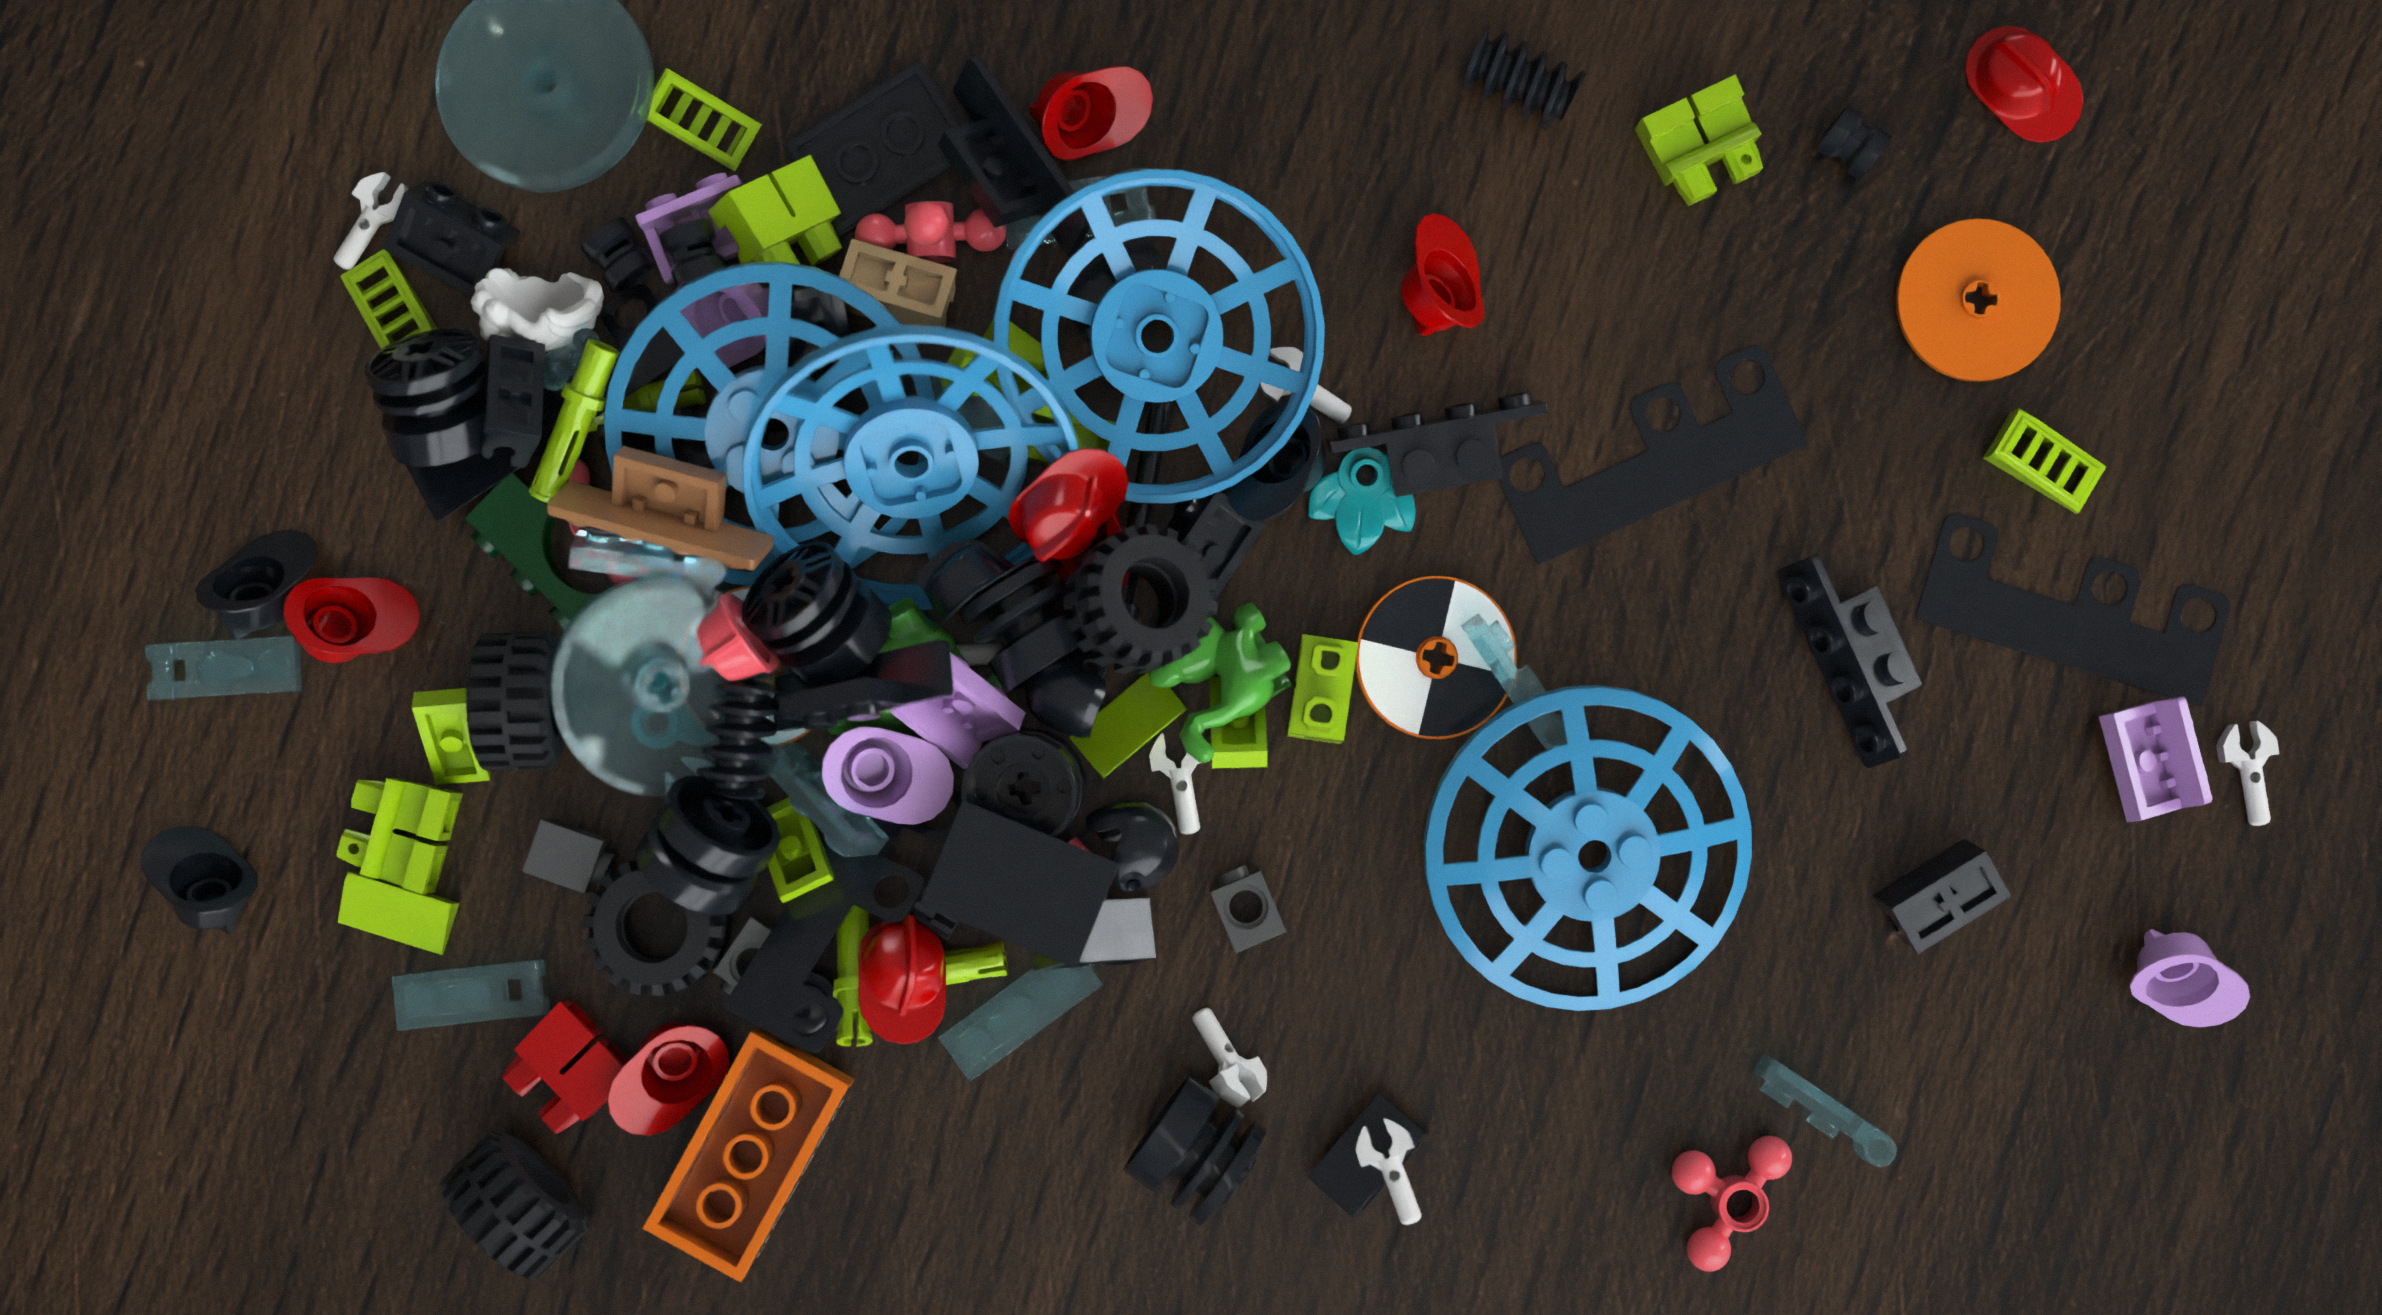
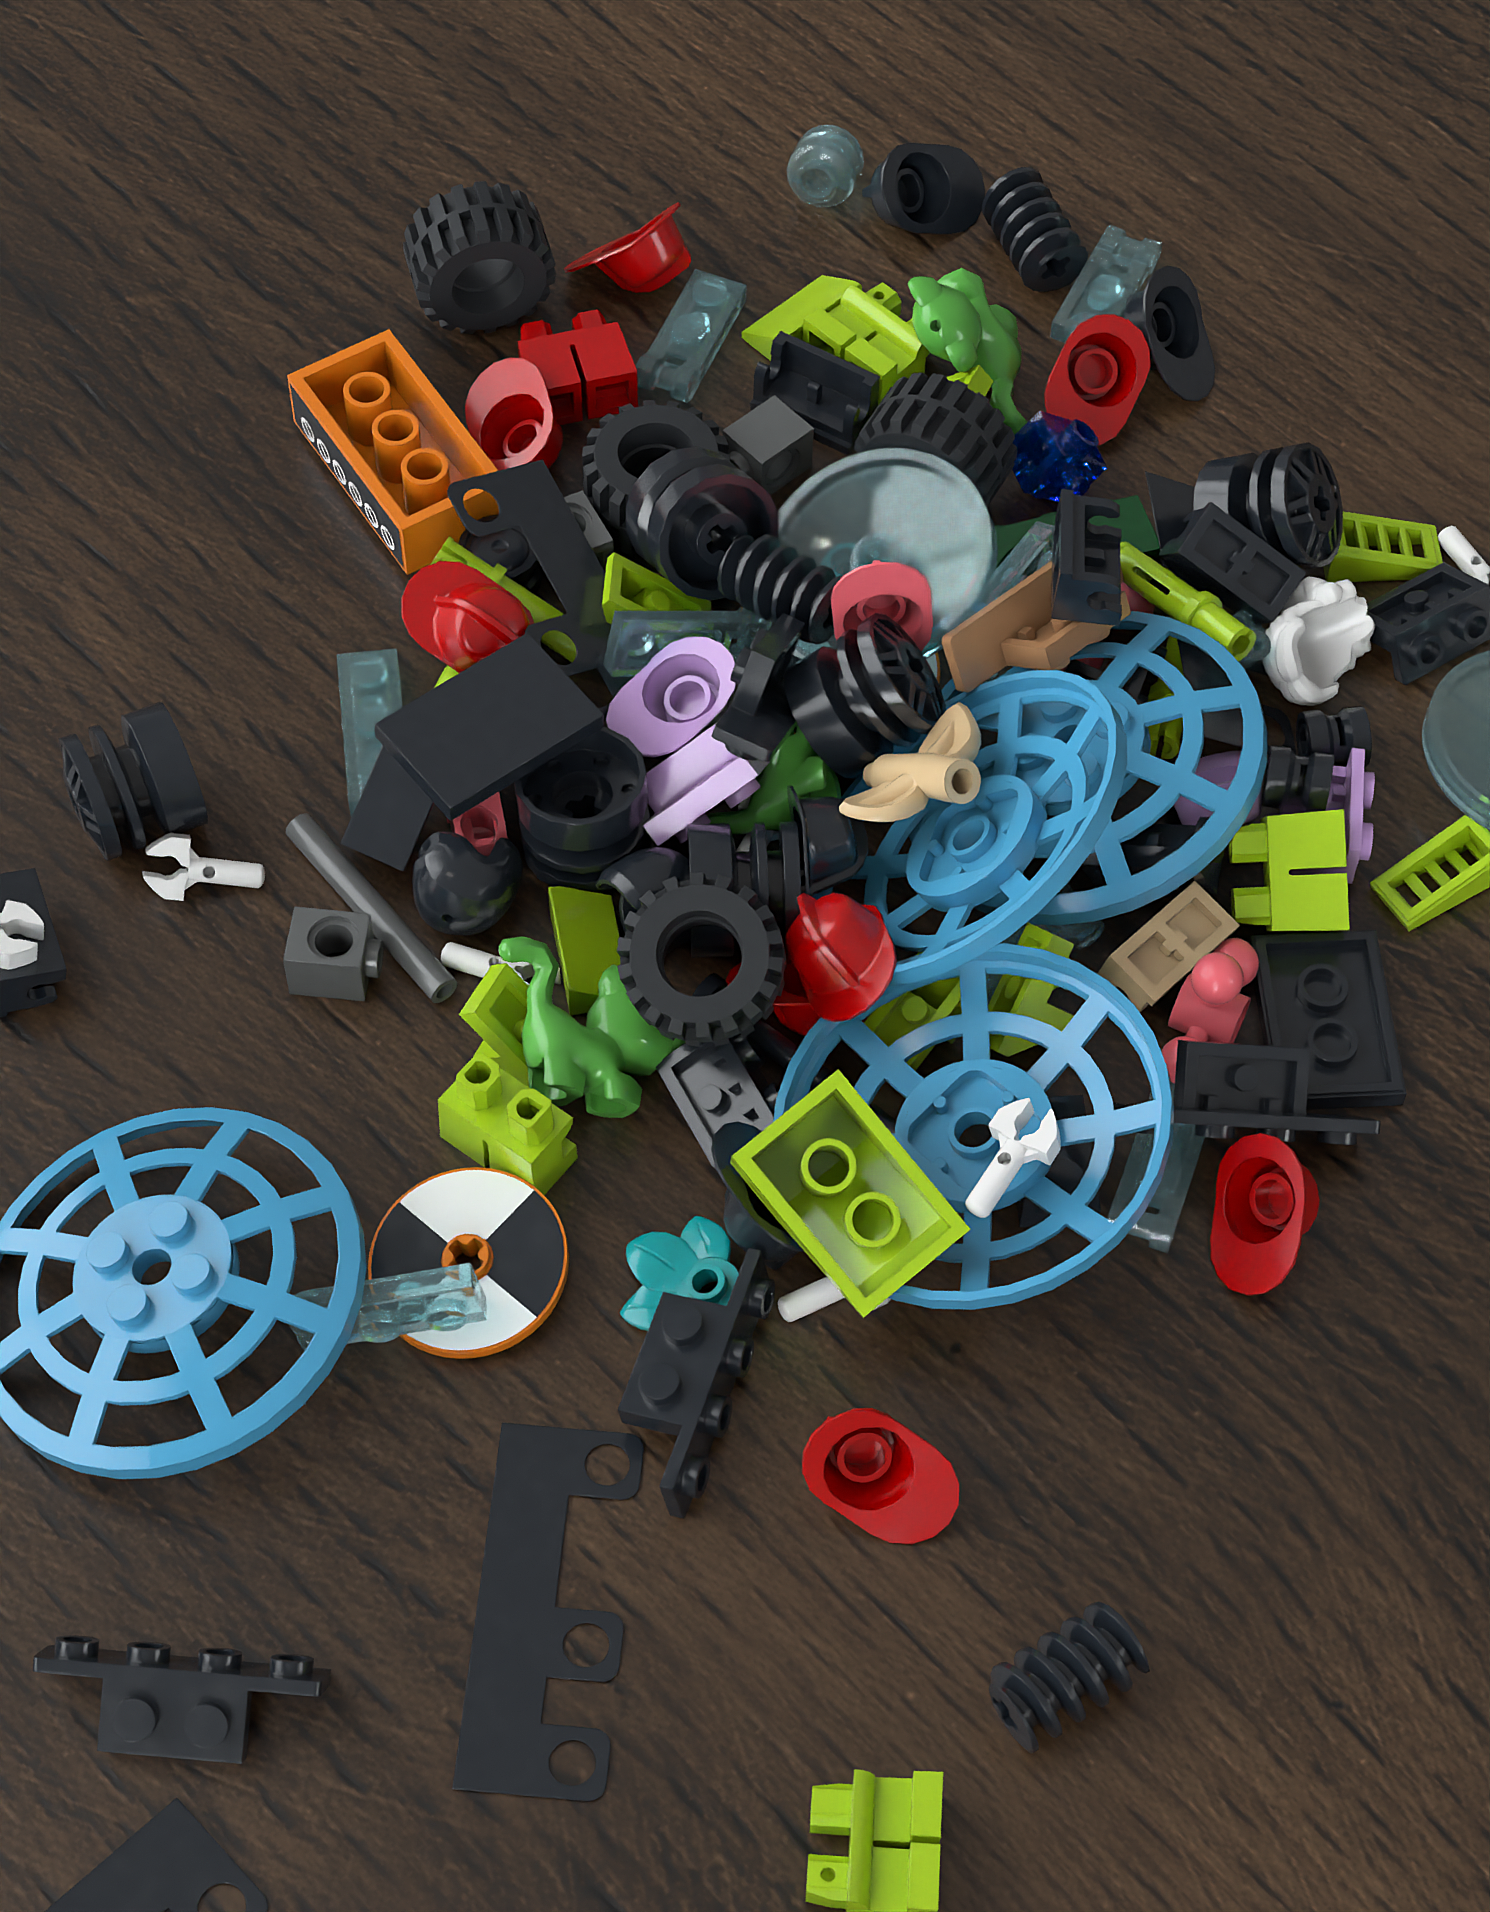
camera: 120 degrees right, 30 degrees down
(197, 761) = (1034, 230): none -> black piece
(216, 982) = (825, 165): none -> clear light blue head
(362, 743) = (962, 327): none -> bright green animal
(410, 1092) = (643, 257): none -> red piece
(454, 607) = (1056, 456): none -> clear blue brick
(486, 849) = (820, 389): none -> black hinge
(613, 493) = (1085, 561): none -> black hinge
(881, 526) = (938, 771): none -> tan plant
(1182, 911) = (364, 898): none -> dark grey piece
(1186, 284) = (1005, 1128): none -> white bar
(1273, 392) = (849, 1193): none -> lime slope

